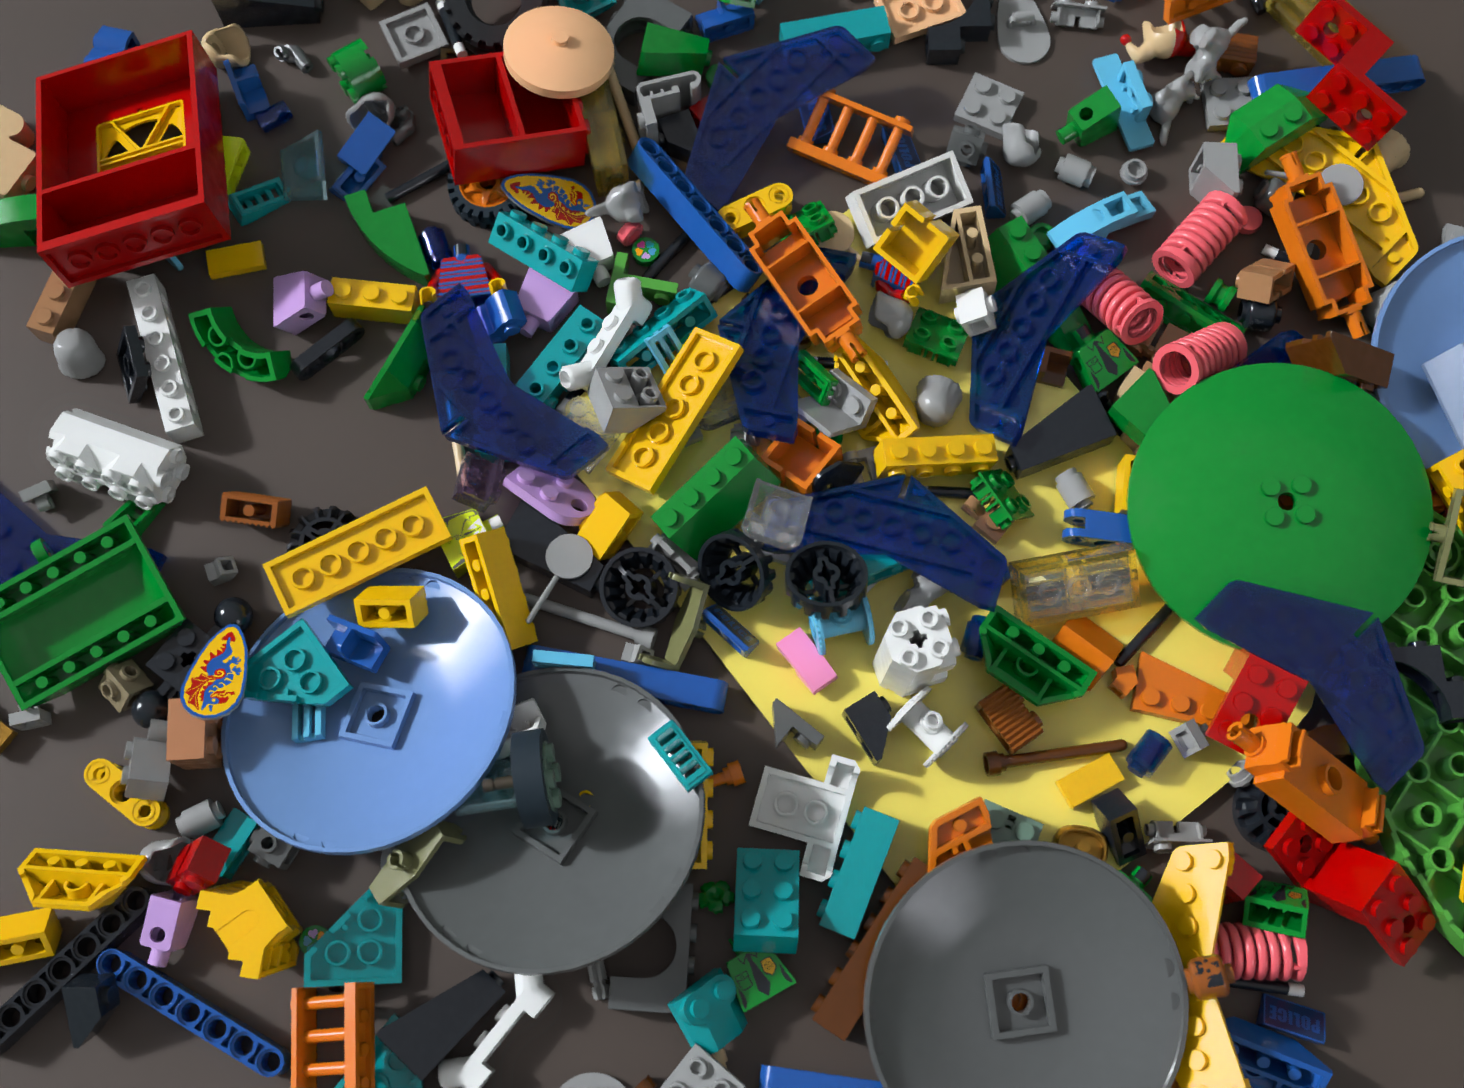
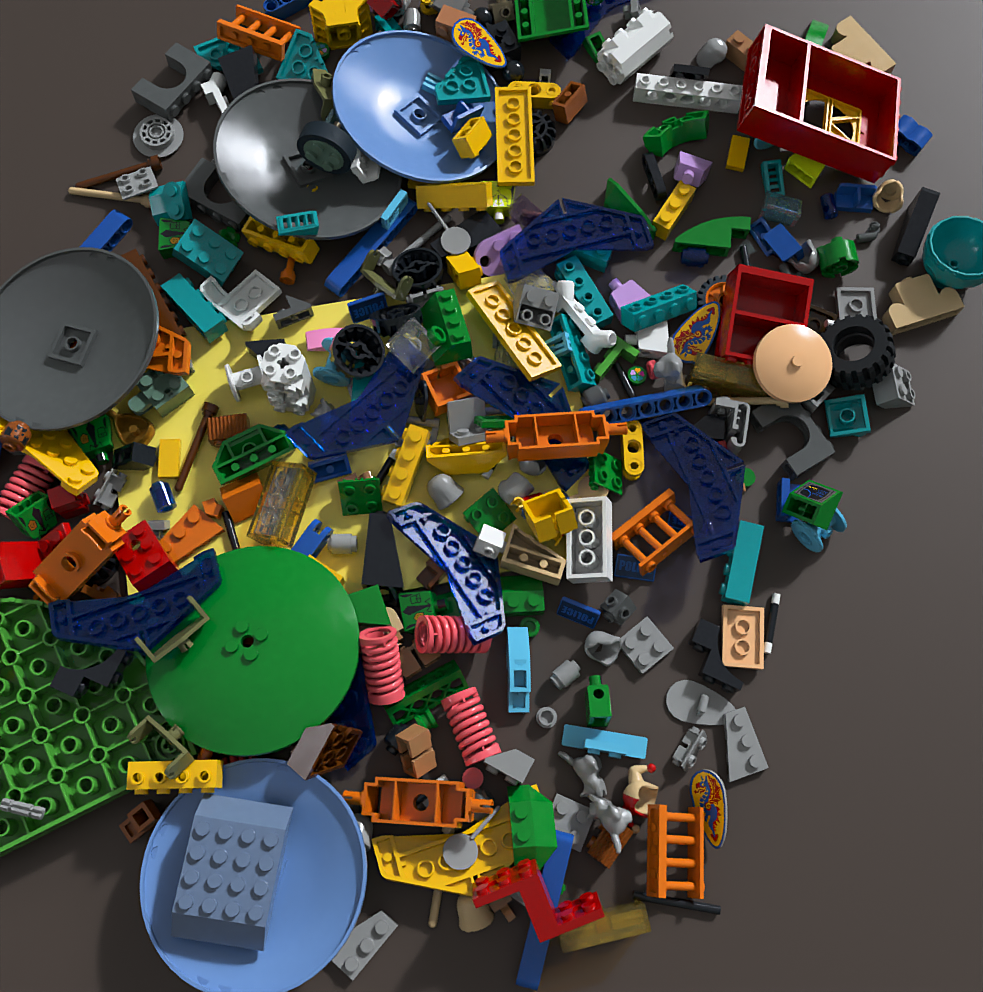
camera: 115 degrees right, 0 degrees up
(252, 552) = (541, 93): none -> yellow piece
(470, 271) = (663, 260): torso -> none
(502, 315) = (625, 266): blue brick -> none
(672, 52) = (772, 447): green slope -> none
(749, 484) = (436, 336): none -> green tile
(1031, 206) = (551, 627): light grey brick -> none
(1337, 582) = (180, 638): none -> olive piece

